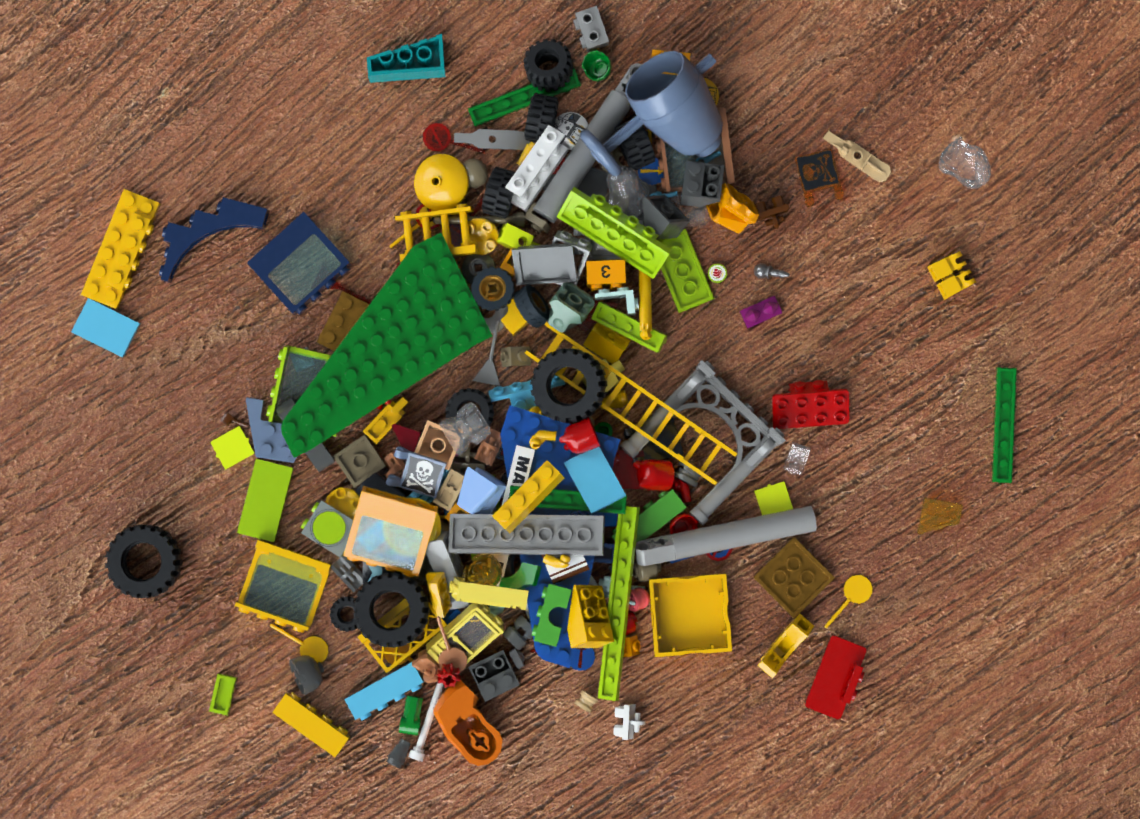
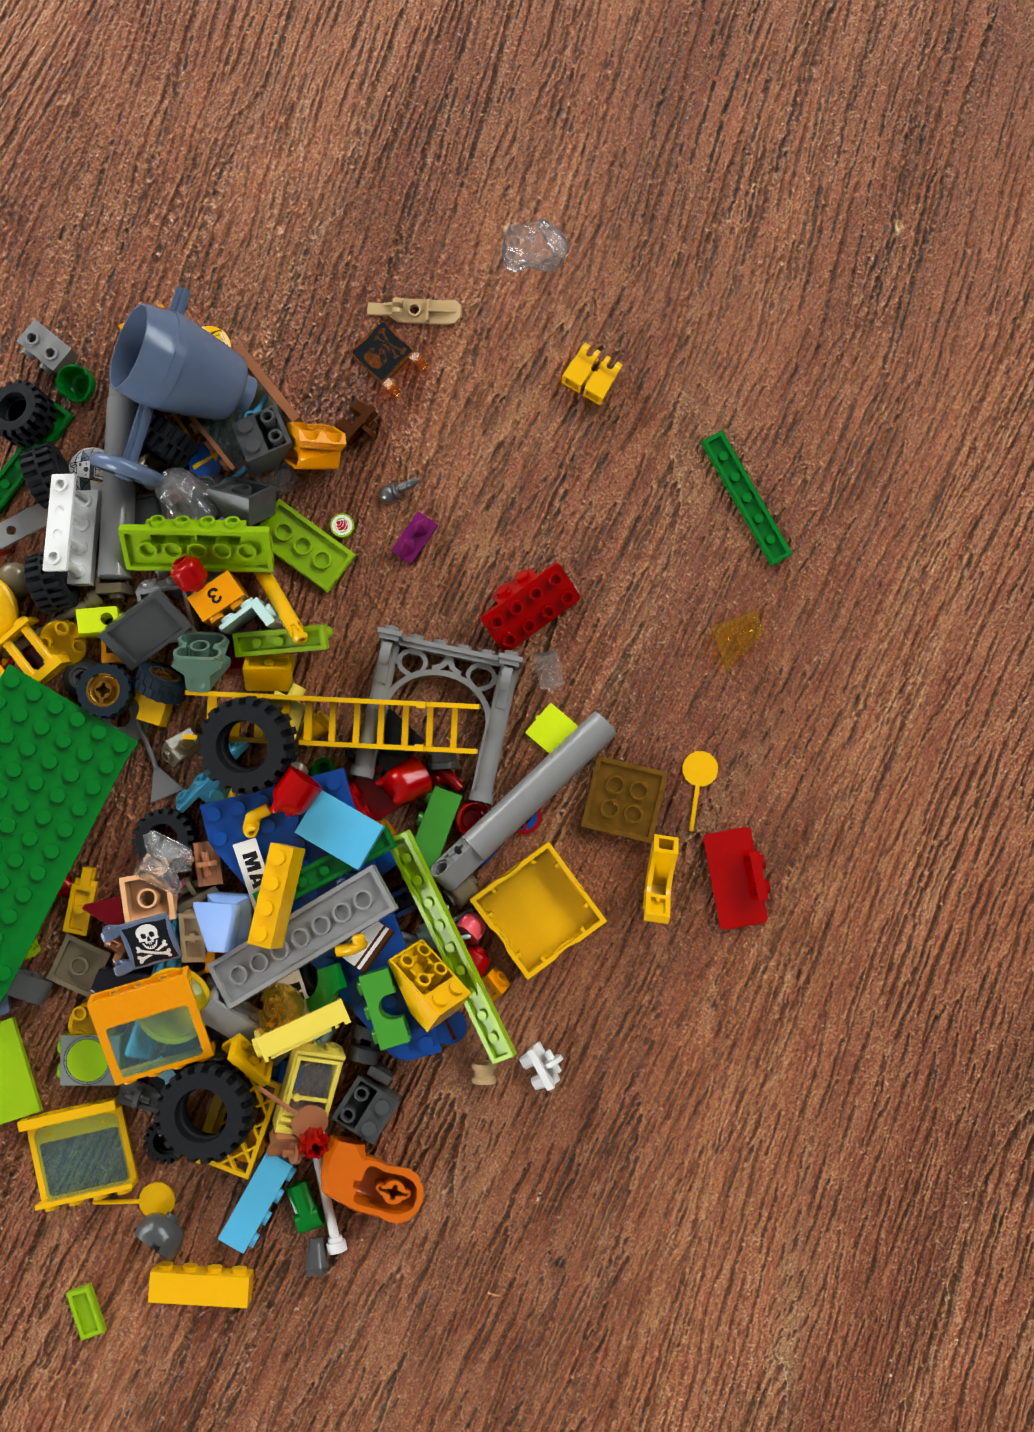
camera: 30 degrees left, 0 degrees up
(598, 247) = (189, 573): none -> red head

